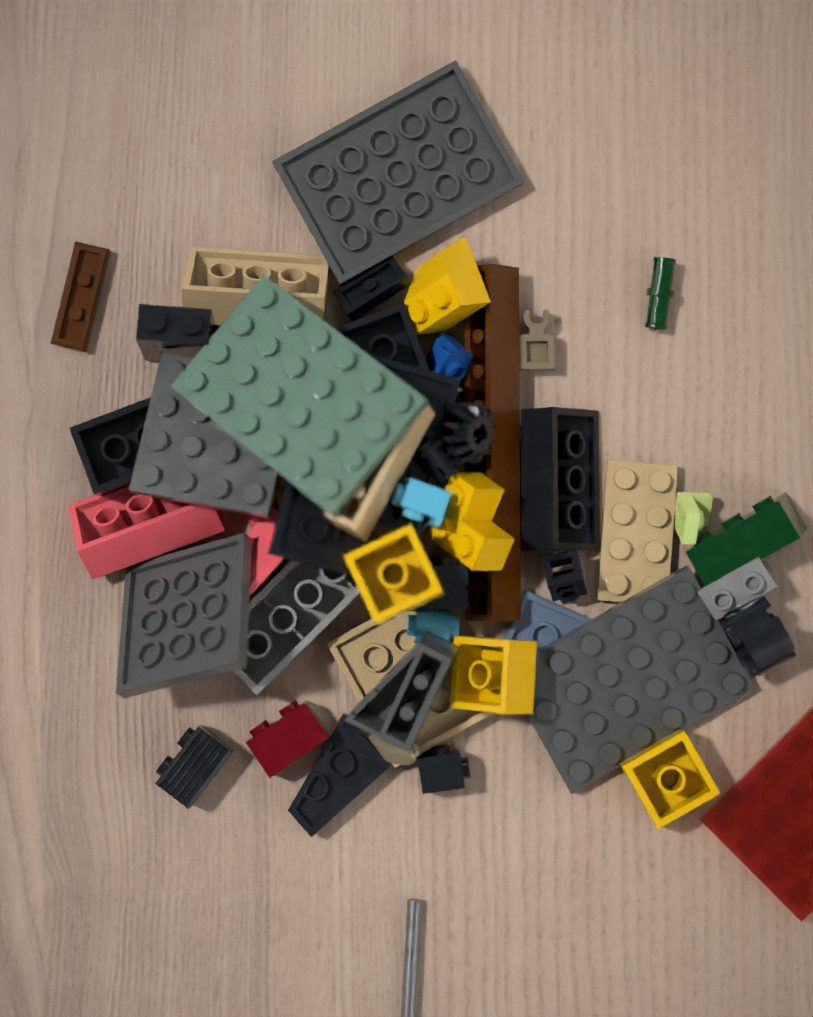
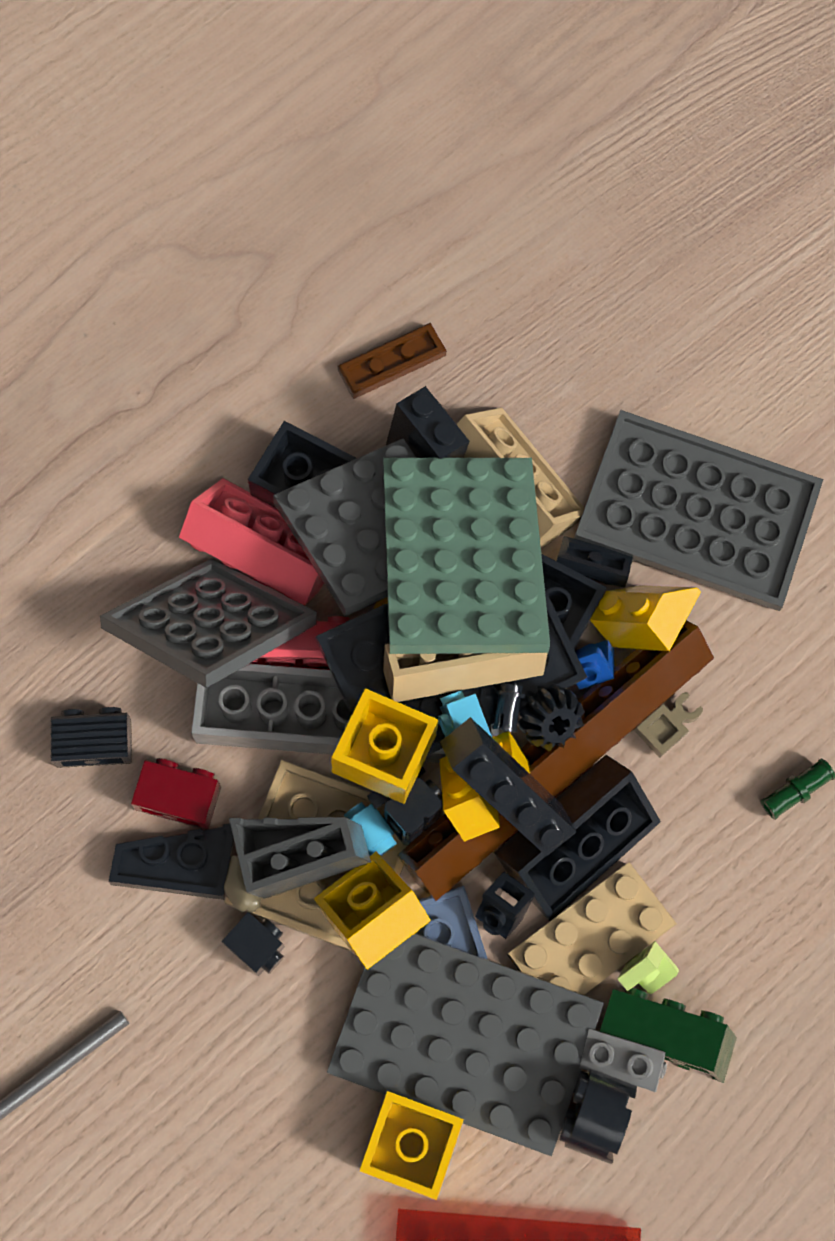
camera: 45 degrees right, 15 degrees down
(494, 511) = (507, 786): none -> black brick

